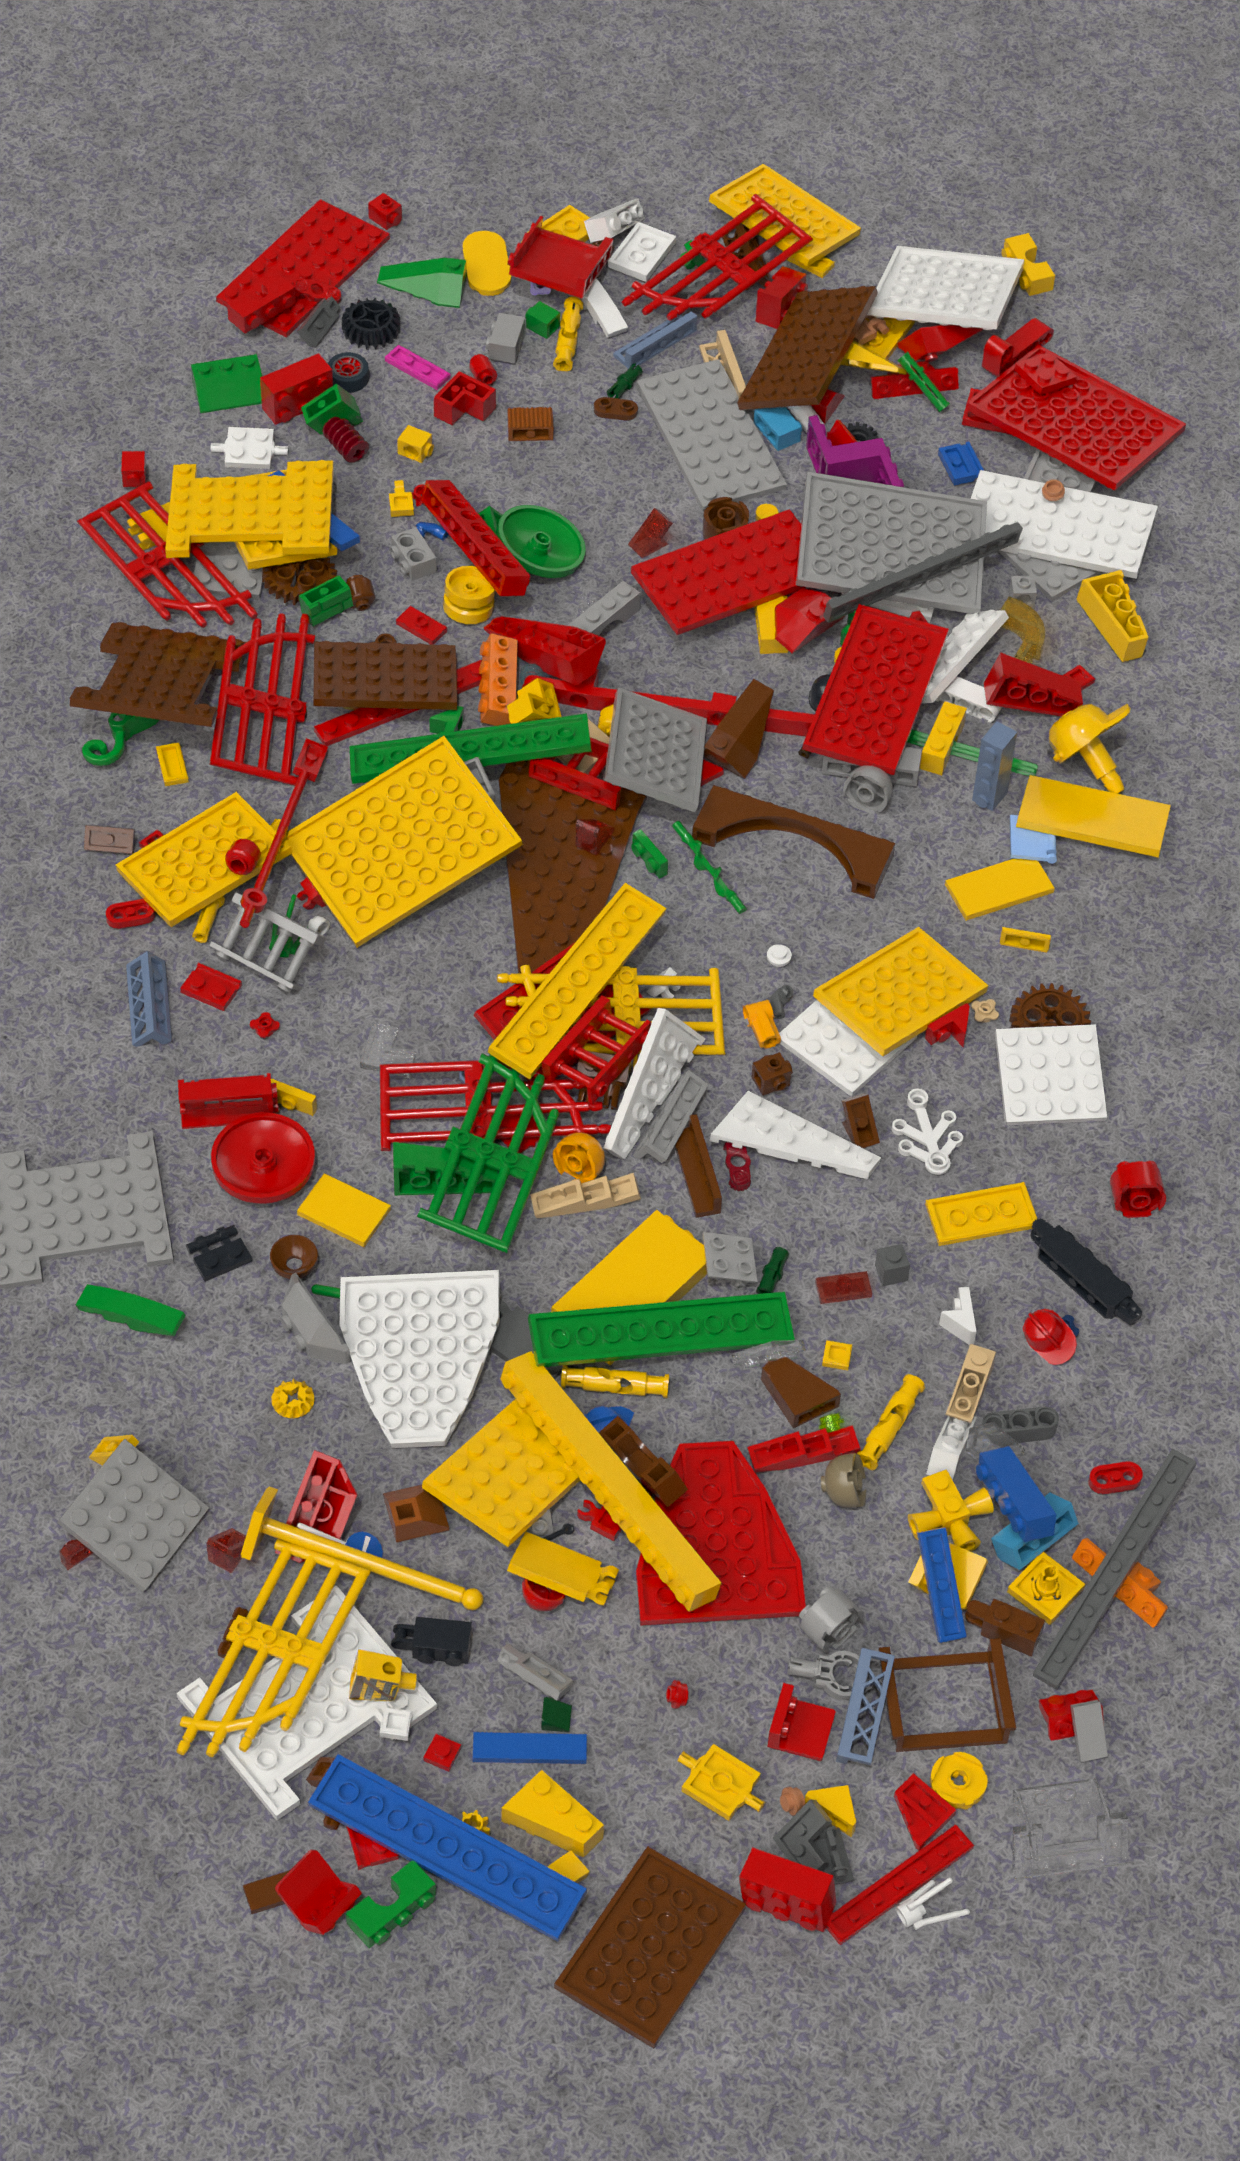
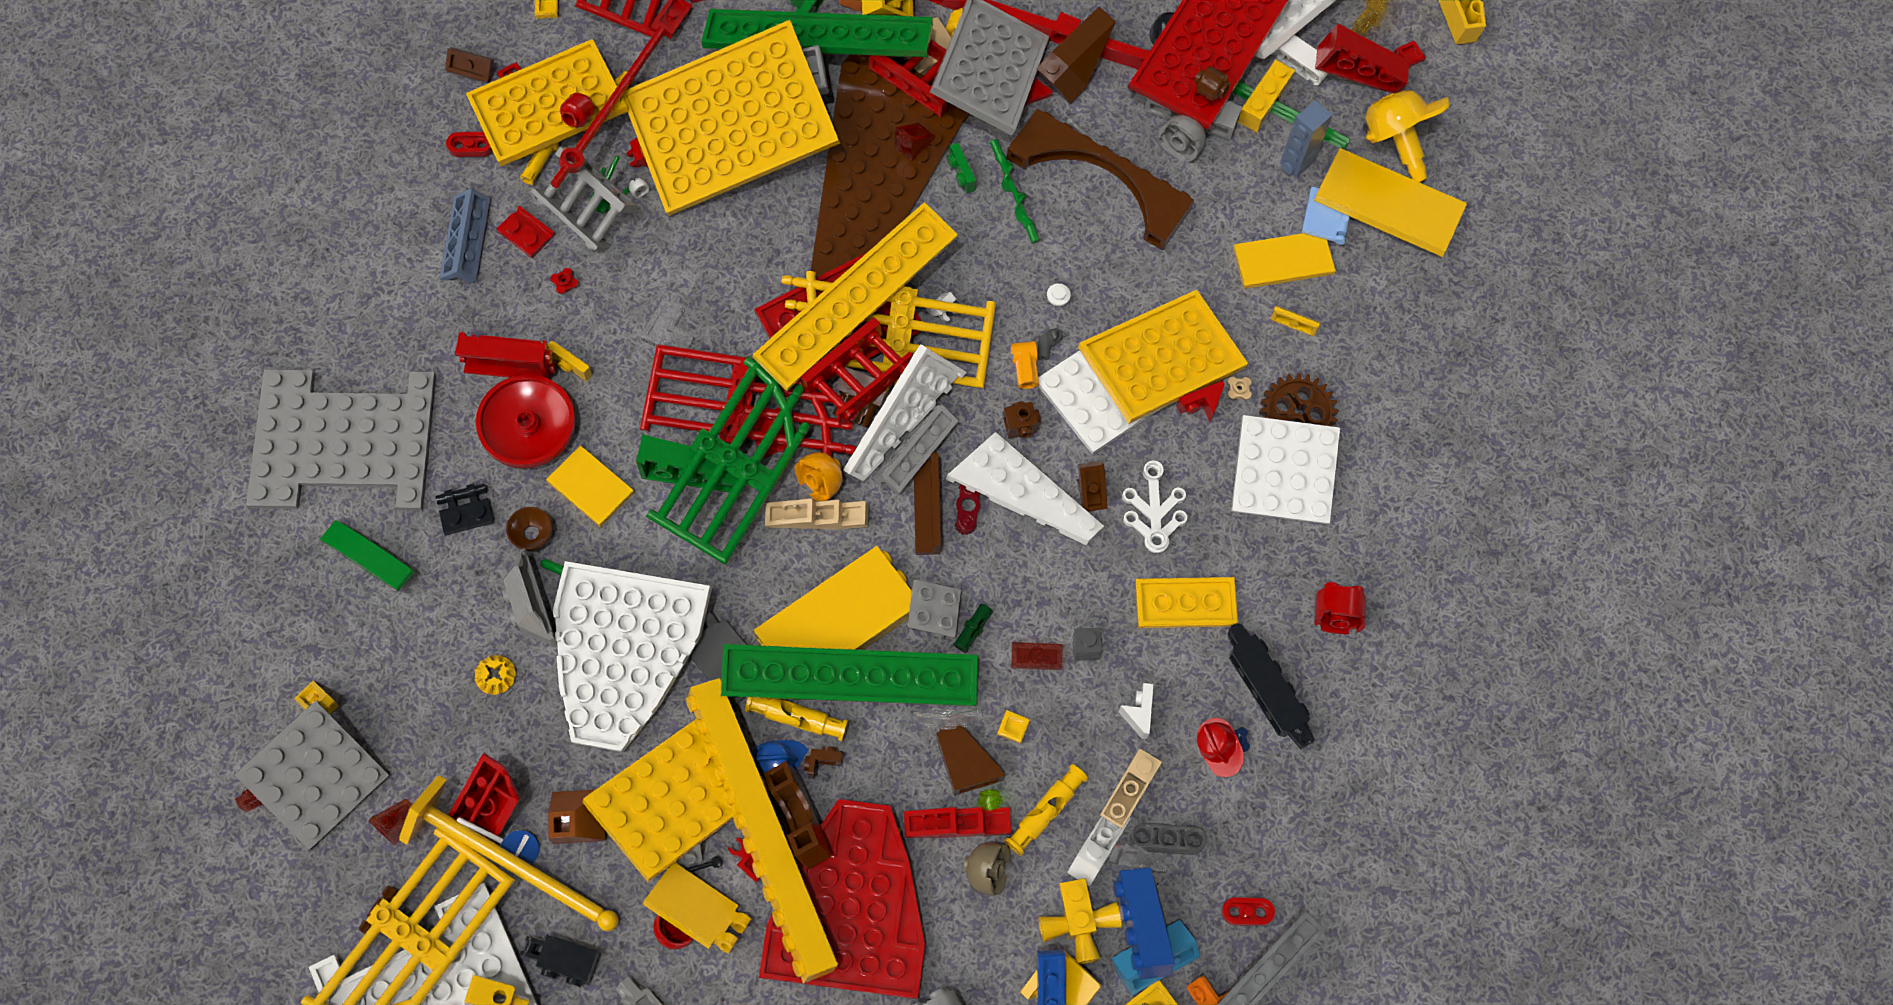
camera: 10 degrees right, 15 degrees up
(652, 1413) = (826, 756): none -> reddish brown bracket
(887, 728) = (1212, 83): none -> reddish brown head

